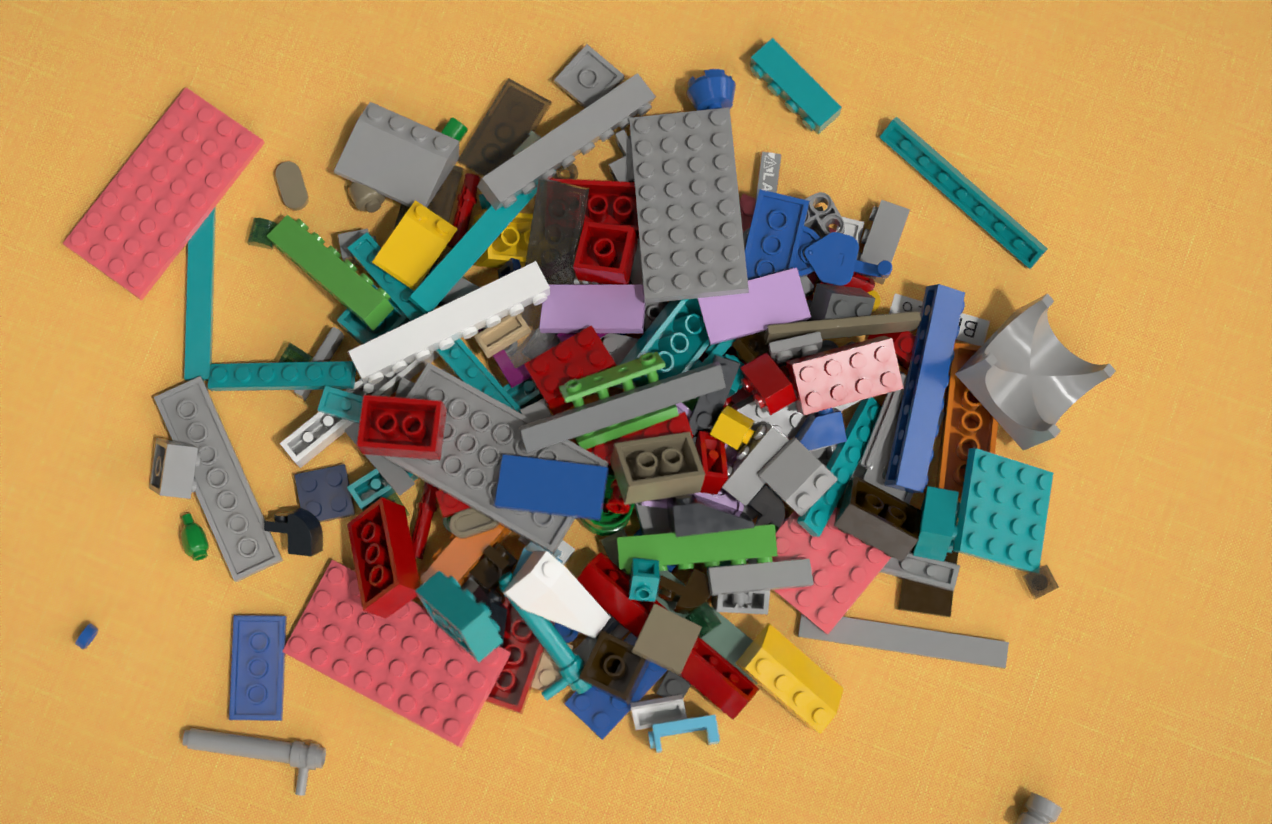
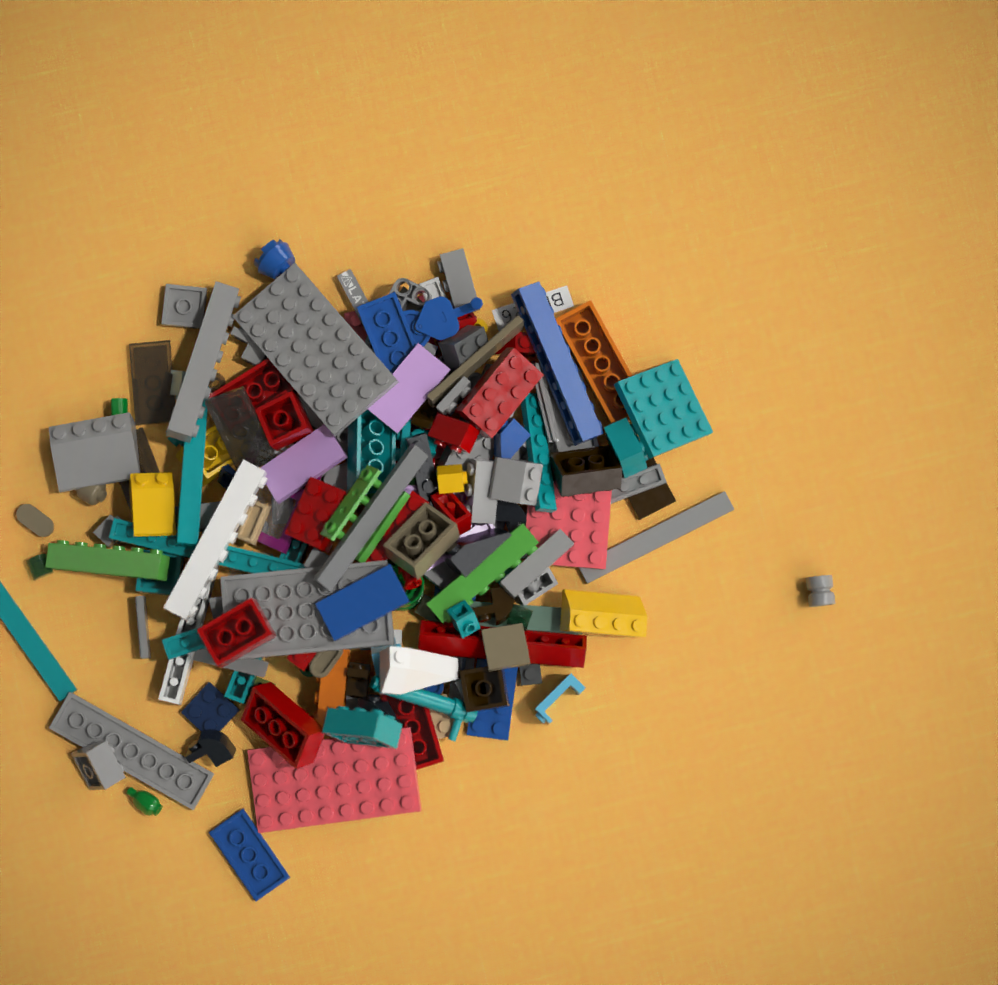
camera: 40 degrees left, 5 degrees up
(87, 636) = (122, 915): blue tile -> none
(281, 376) = (125, 653): teal plate -> none
(295, 354) = (125, 636): clear green brick -> none
(296, 753) = (314, 892): light grey cylinder -> none
(425, 513) = (288, 680): red pin -> none
(465, 205) = (164, 454): red pin -> none
(658, 711) = (531, 696): white tile -> none
(794, 86) = (326, 215): teal brick -> none
(963, 193) = (489, 211): teal plate -> none
(1029, 375) = (618, 307): light grey piece -> none
(1040, 582) = (718, 437): clear smoke plate -> none

